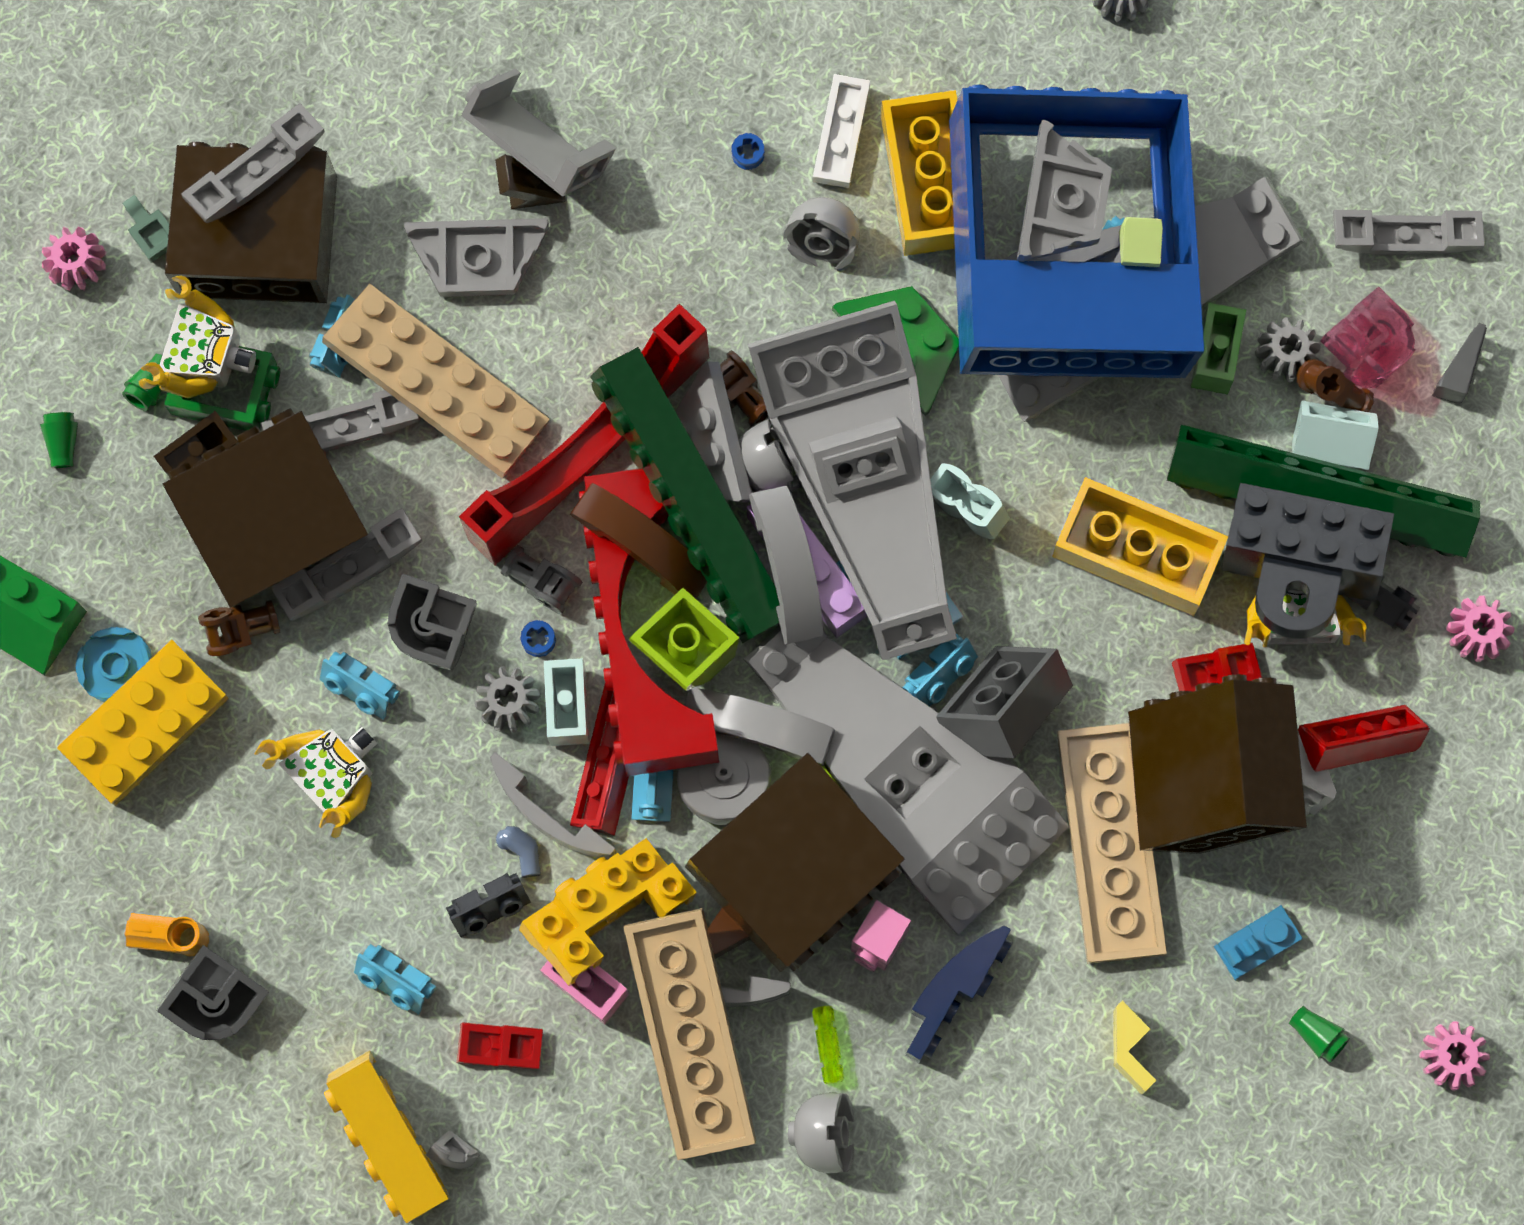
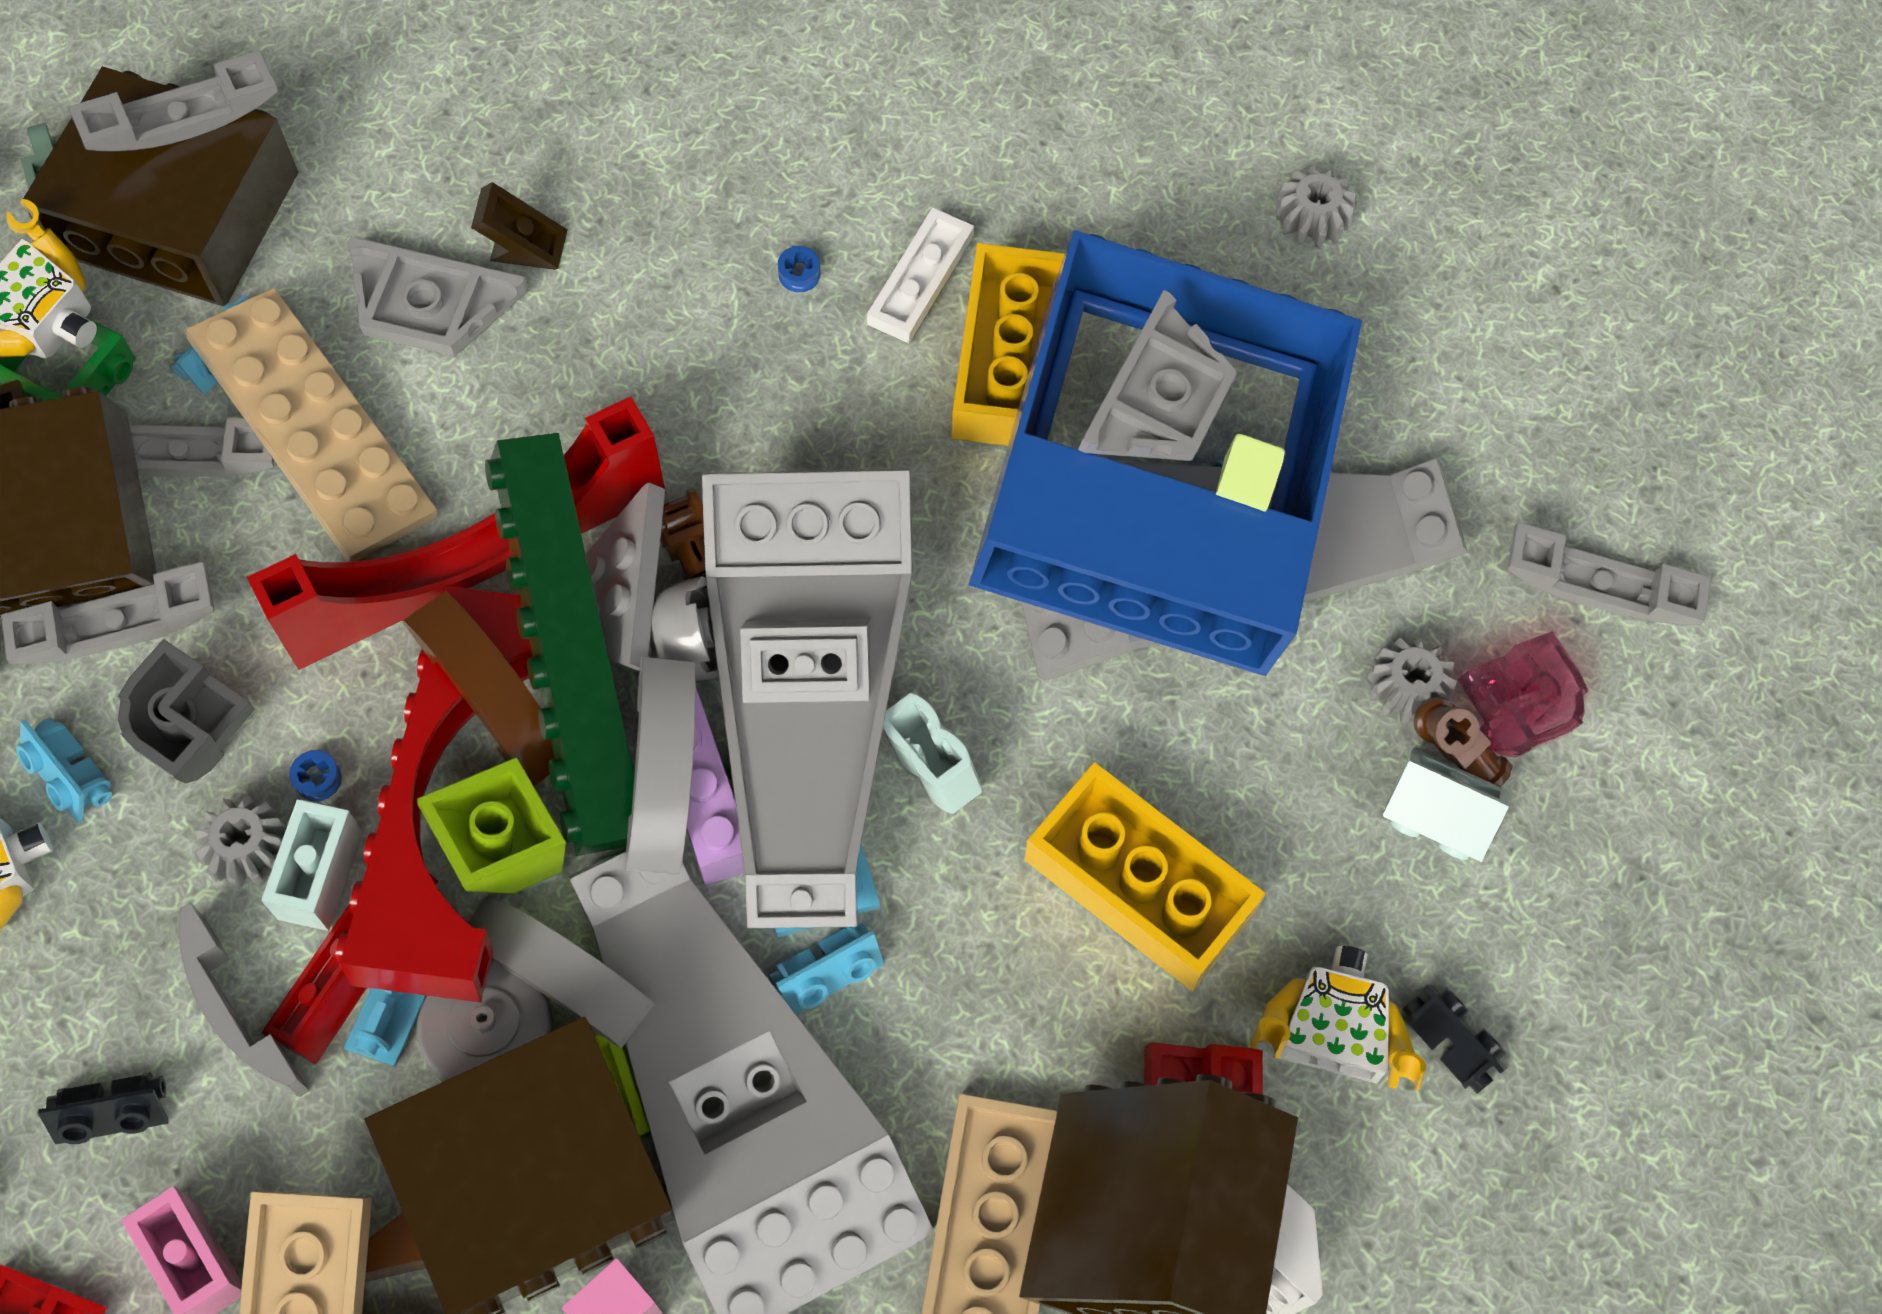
camera: 10 degrees right, 10 degrees down
(524, 846) = (186, 1043): sand blue arm -> none
(530, 139) = (507, 141): light grey panel -> none
(544, 581) = (352, 705): dark grey connector -> none
(597, 899) = (242, 1145): yellow bracket -> none
(820, 226) = (848, 372): light grey cylinder -> none
(927, 336) = (941, 548): green wing -> none
(1007, 699) = (898, 1030): dark grey slope -> none
(1222, 341) = (1319, 652): bright green brick -> none
(1305, 547) = (1371, 936): black brick -> none
(1362, 737) = (1380, 1225): red slope -> none
(1420, 513) = (1416, 875): dark green brick -> none
(1458, 376) = (1630, 776): dark grey slope -> none
(1484, 644) = (1592, 1144): bright pink gear -> none

